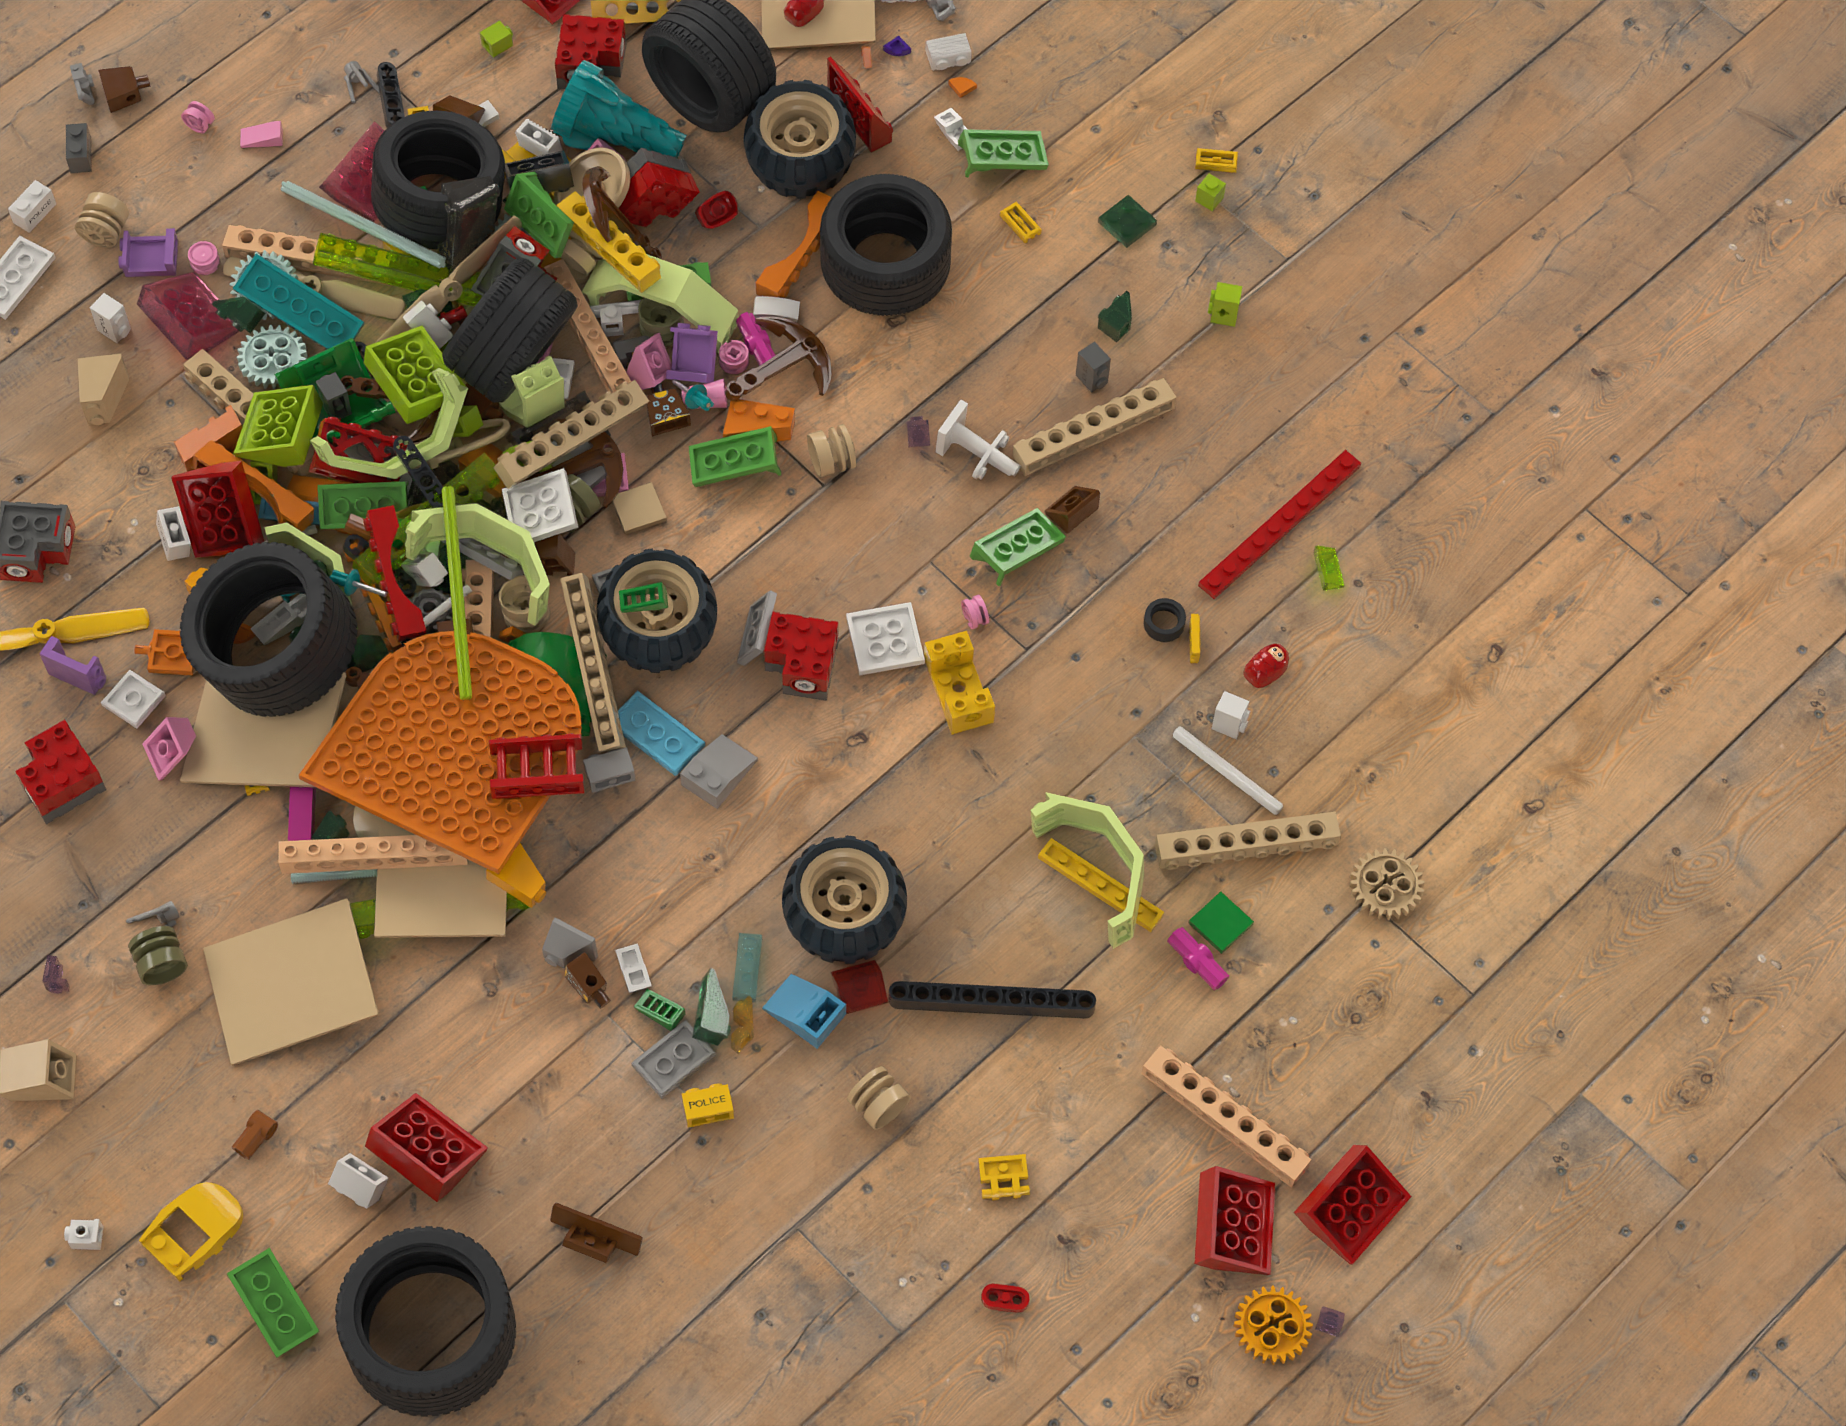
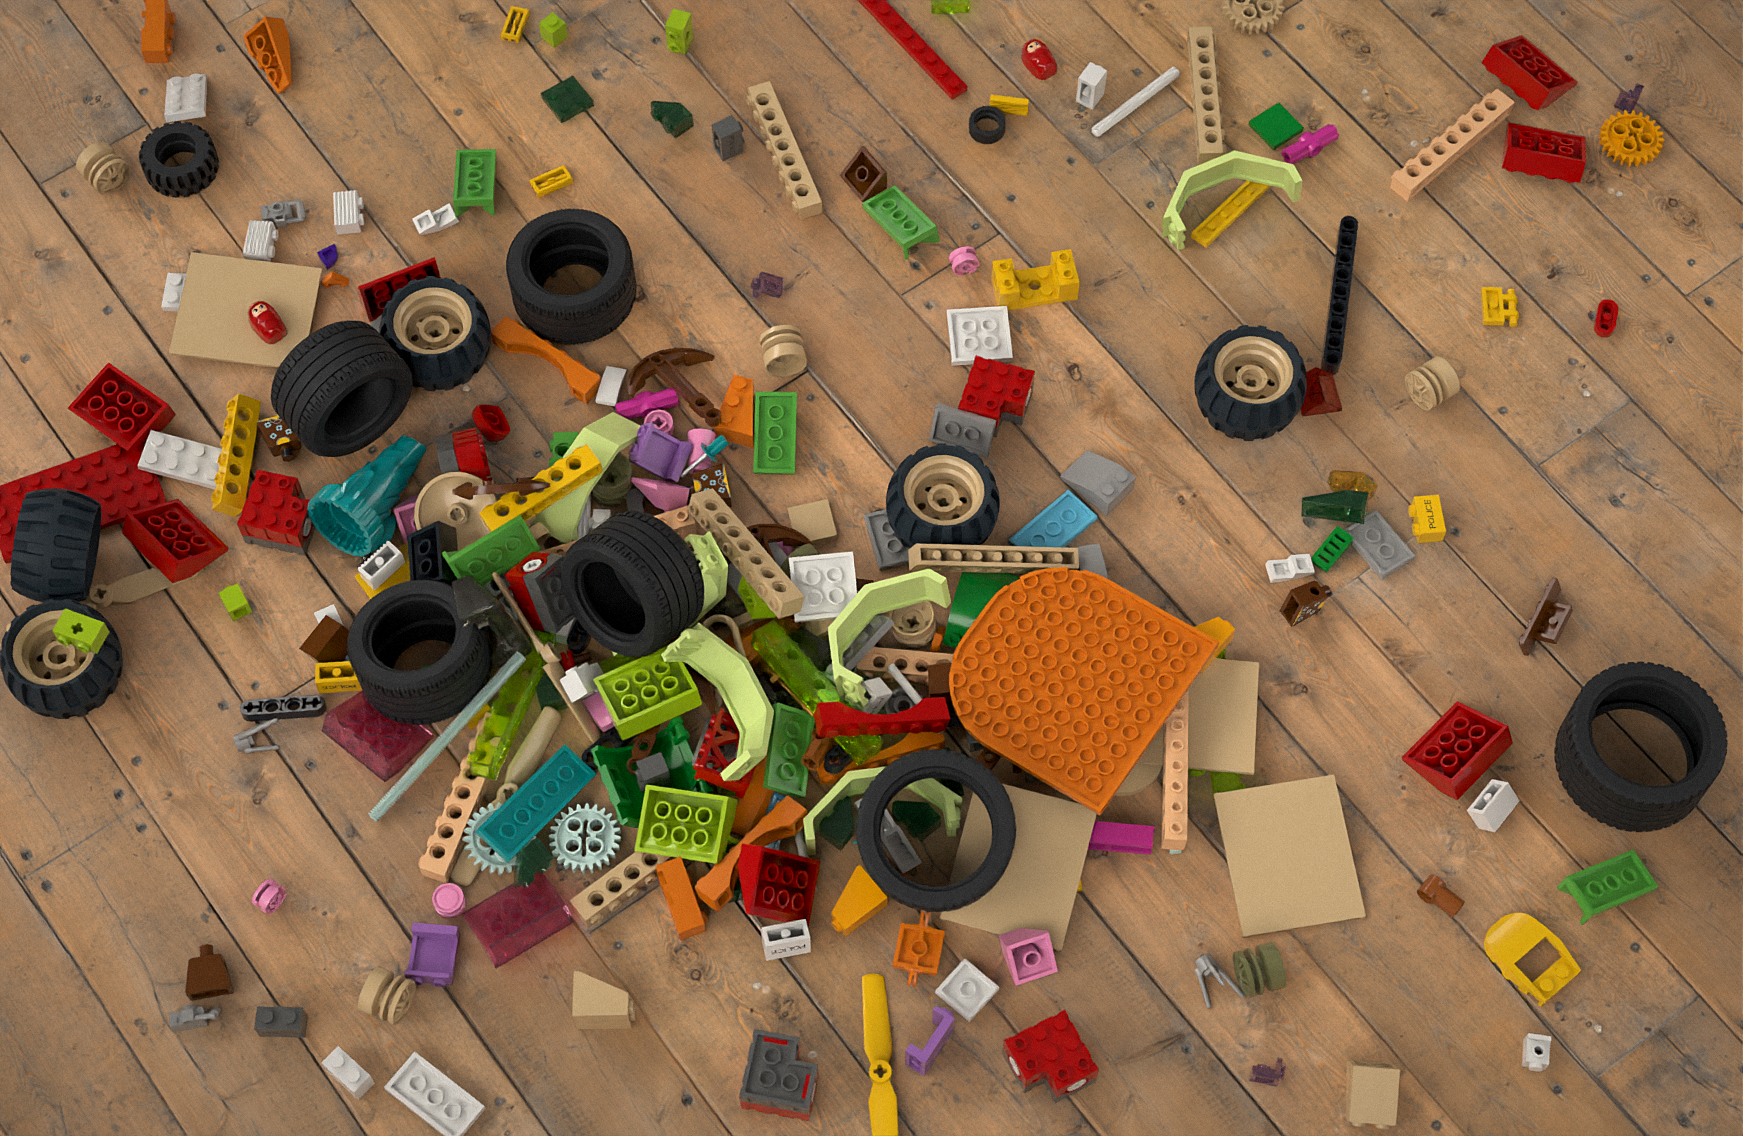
camera: 80 degrees left, 0 degrees up
(110, 318) = (515, 990): white brick -> none
(262, 135) = (302, 836): bright pink slope -> none
(331, 828) = (1142, 806): clear green slope -> none
(352, 582) = (885, 758): teal piece -> none
(420, 473) = (777, 685): black beam -> none
(457, 597) = (923, 652): lime axle -> none
(541, 785) = (1133, 610): red fence -> none
(567, 943) = (1270, 615): light grey slope -> none
(653, 604) = (951, 477): green slope -> none
(747, 966) = (1294, 478): clear light blue plate -> none
(806, 1009) = (1342, 433): dark azure slope -> none
(954, 431) = (780, 251): white piece -> none
(962, 85) = (387, 208): orange tile -> none

